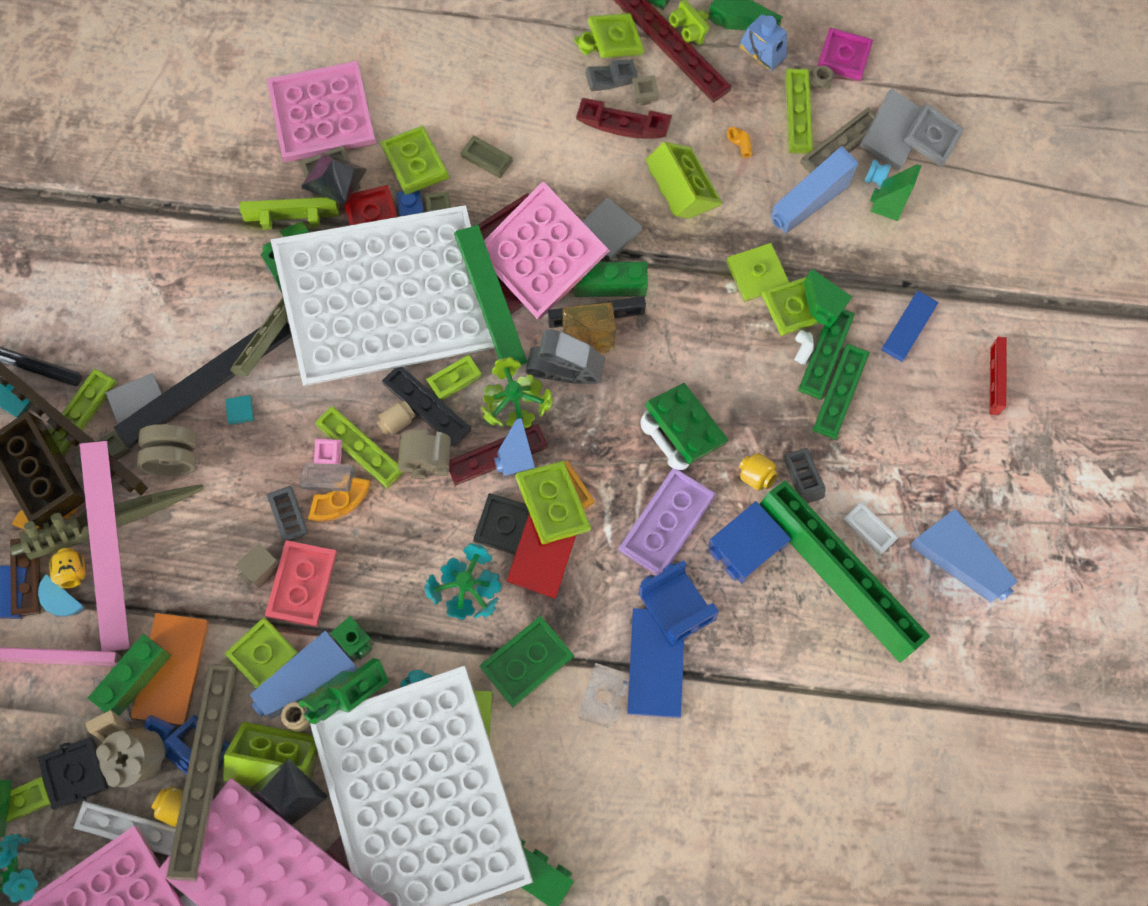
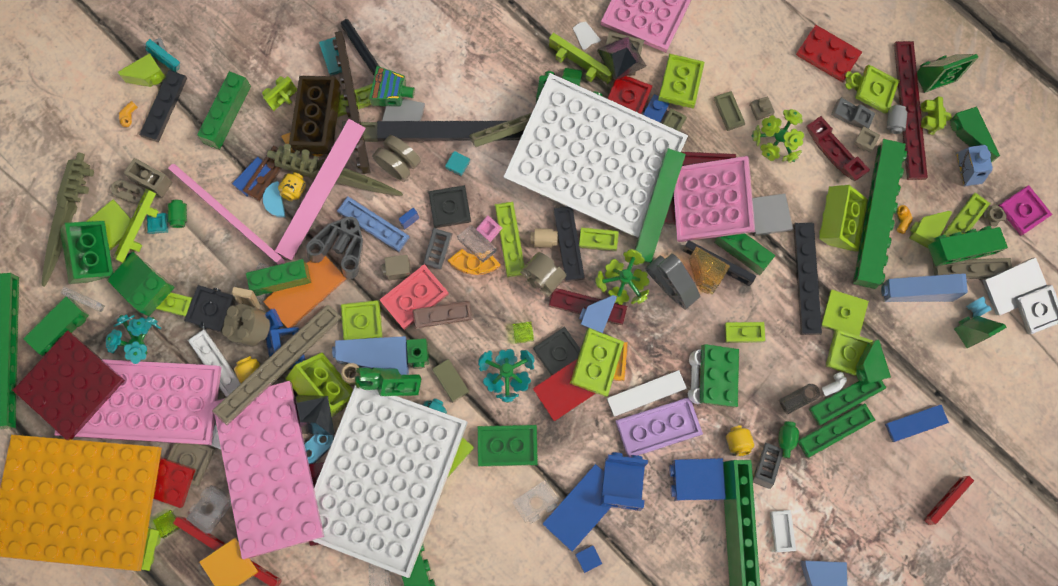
camera: 40 degrees right, 5 degrees up
(101, 383) = (389, 88): none -> green torso
(151, 593) = (324, 240): none -> dark grey connector
(193, 541) = (374, 224): none -> medium blue tile
(230, 505) = (408, 218): none -> blue tile
(266, 461) = (449, 206): none -> pearl dark grey tile
(276, 183) = (585, 35): none -> white sticker
(320, 827) = (318, 449): none -> medium azure plate
(347, 578) = (442, 314): none -> tile
(411, 641) = (450, 380): none -> olive tile
(450, 532) = (523, 332): none -> clear neon green tile
(517, 131) = (762, 108): none -> dark tan tile
(541, 33) = (829, 53): none -> red plate
(547, 141) = (790, 139): none -> lime plant
(627, 497) = (646, 393): none -> white tile
(658, 50) = (897, 119): none -> light grey brick
(676, 361) = (744, 332): none -> lime plate
(695, 265) = (807, 279): none -> black plate
(703, 711) = (588, 559): none -> blue tile
(714, 152) = (879, 214): none -> green brick
(772, 132) = (929, 228): none -> lime slope
(781, 386) = (798, 398): none -> clear smoke piece
(802, 432) = (788, 438): none -> green plant
(820, 122) = (967, 246): none -> green brick

